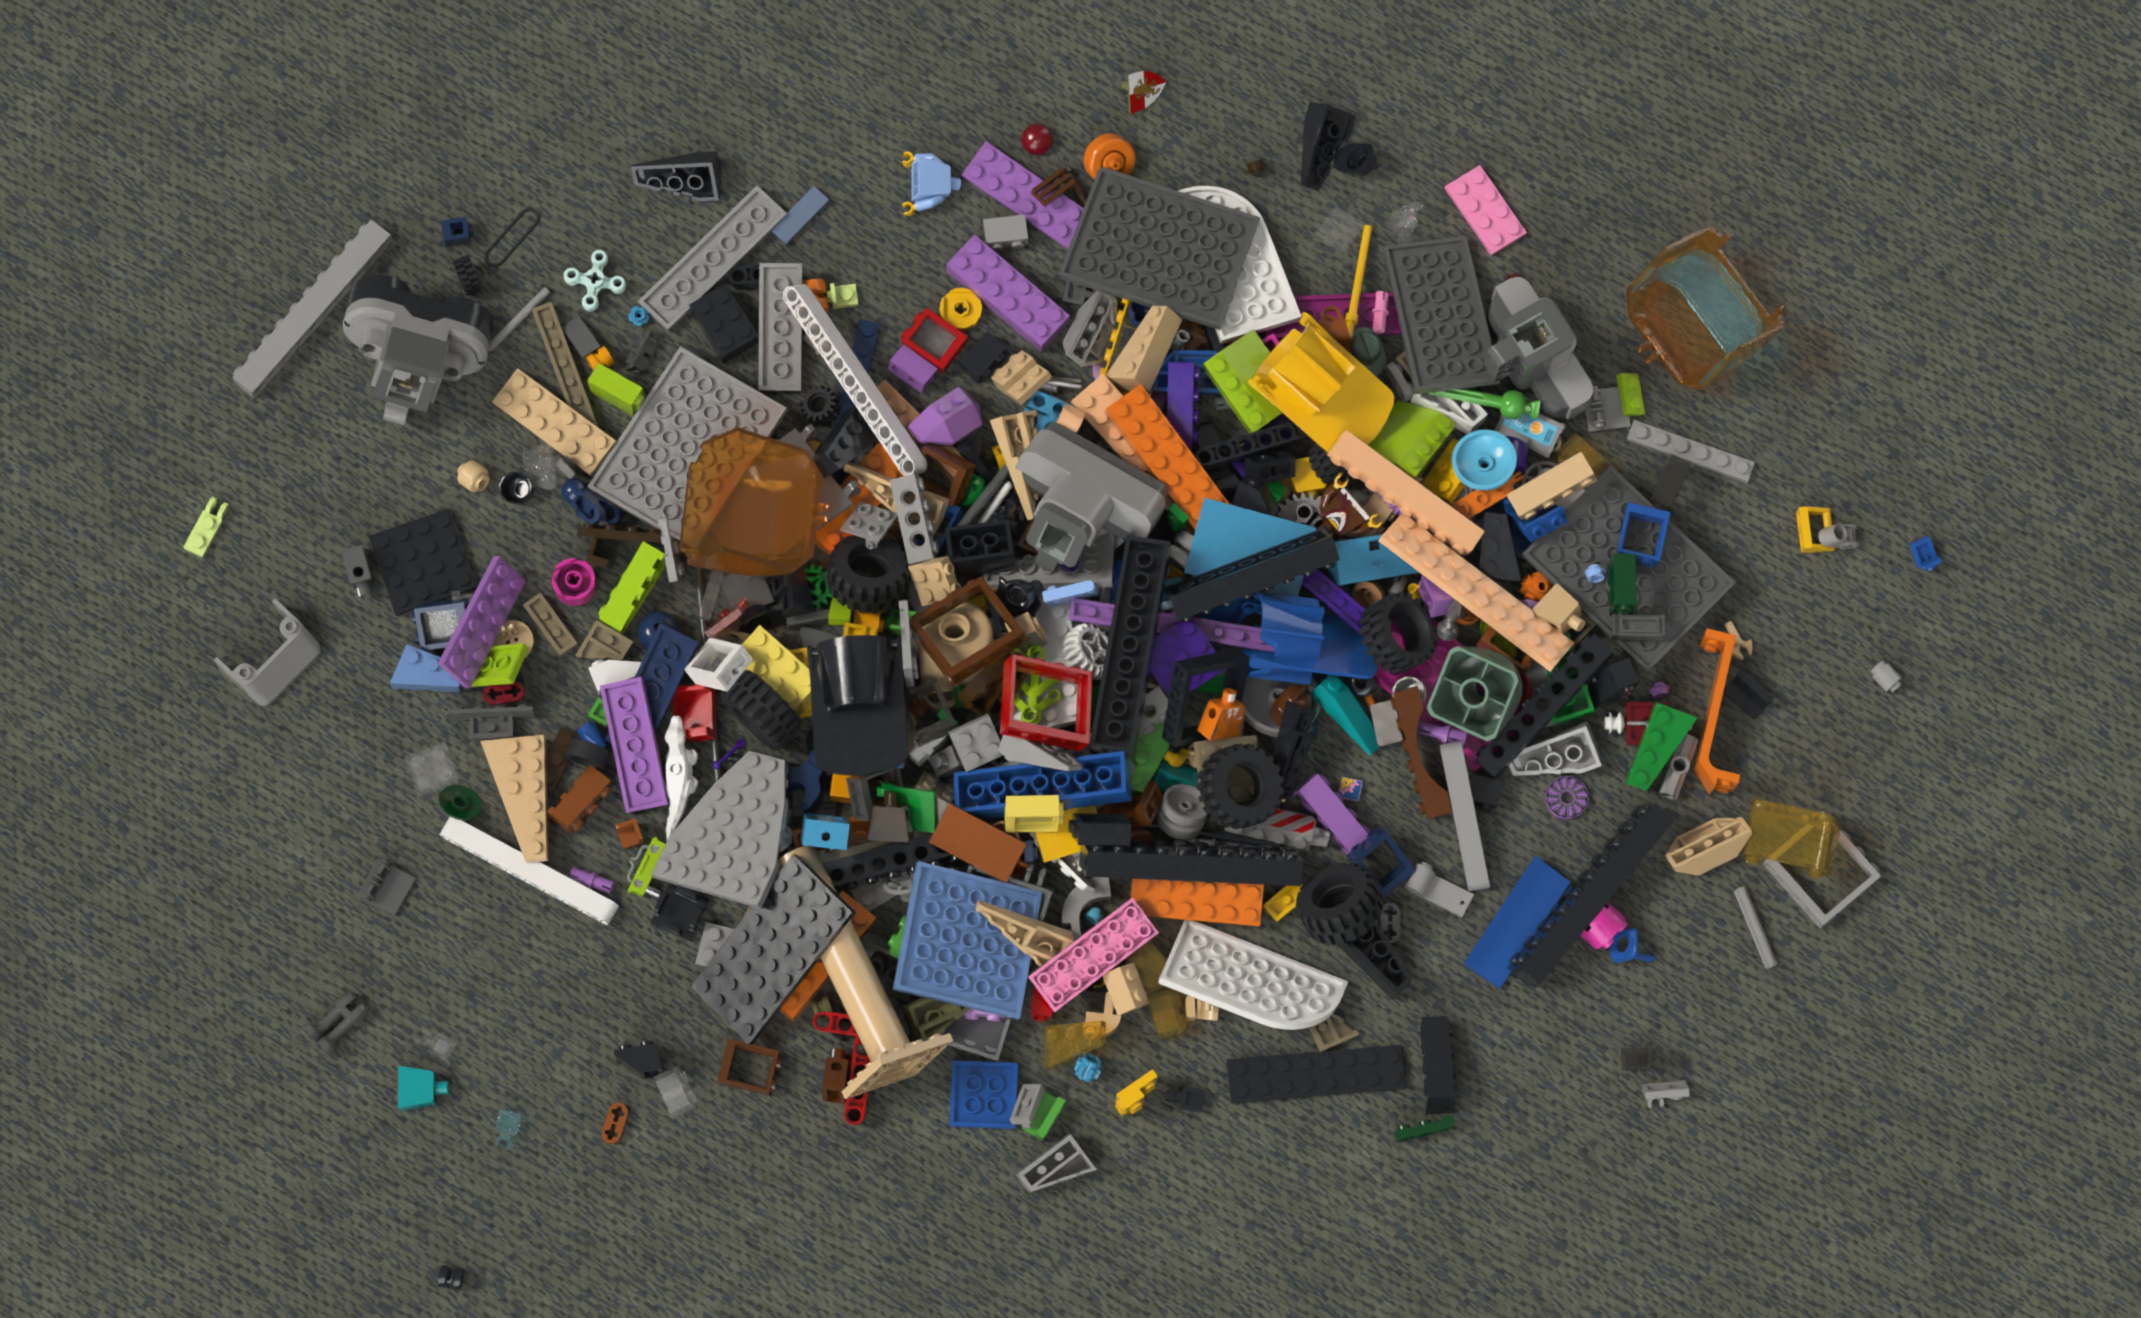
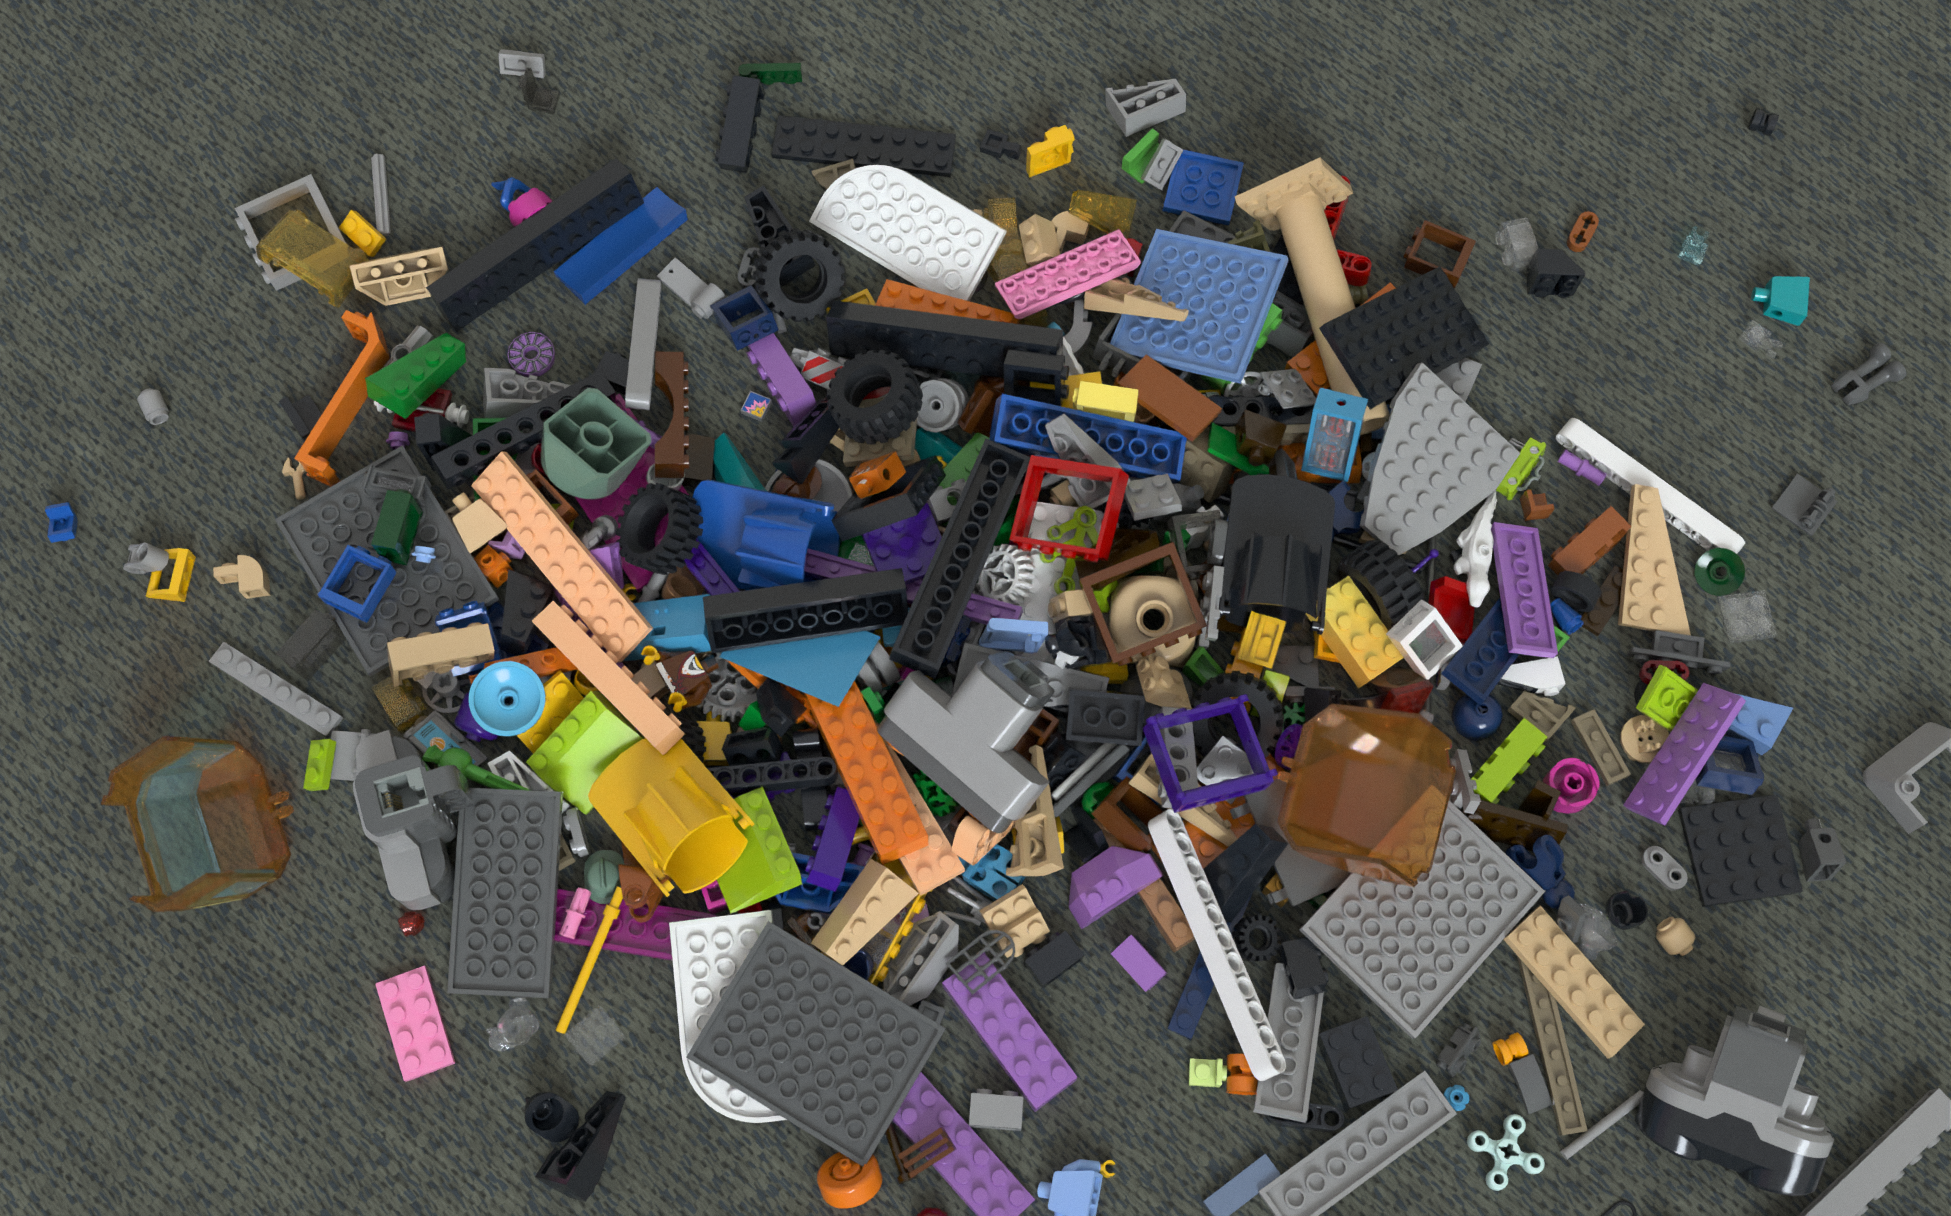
camera: 165 degrees left, 5 degrees down
(467, 275) = (1665, 1187): black tyre -> none
(485, 534) = (1664, 868): none -> light grey plate
(616, 389) = (1497, 1001): lime brick -> none
(679, 911) = (1498, 410): black panel -> none
(778, 384) = (1303, 967): none -> black brick
(821, 555) = (1289, 744): none -> dark purple wheel
(835, 1077) = (1353, 223): reddish brown torso -> none
(869, 488) = (1219, 791): none -> dark purple window
(871, 881) = (1287, 388): none -> light grey hinge
(912, 706) = (1217, 541): none -> dark grey beam
(934, 339) = (1110, 993): red window -> none
(963, 297) = (1080, 1018): yellow plate -> none
(1040, 328) = (980, 969): none -> dark grey window
(1088, 1067) = (1093, 184): dark azure gear -> none
(1256, 167) = (673, 1135): dark brown plate -> none
(1745, 543) = (249, 573): none -> tan brick
(1758, 883) = (362, 233): none -> yellow plate

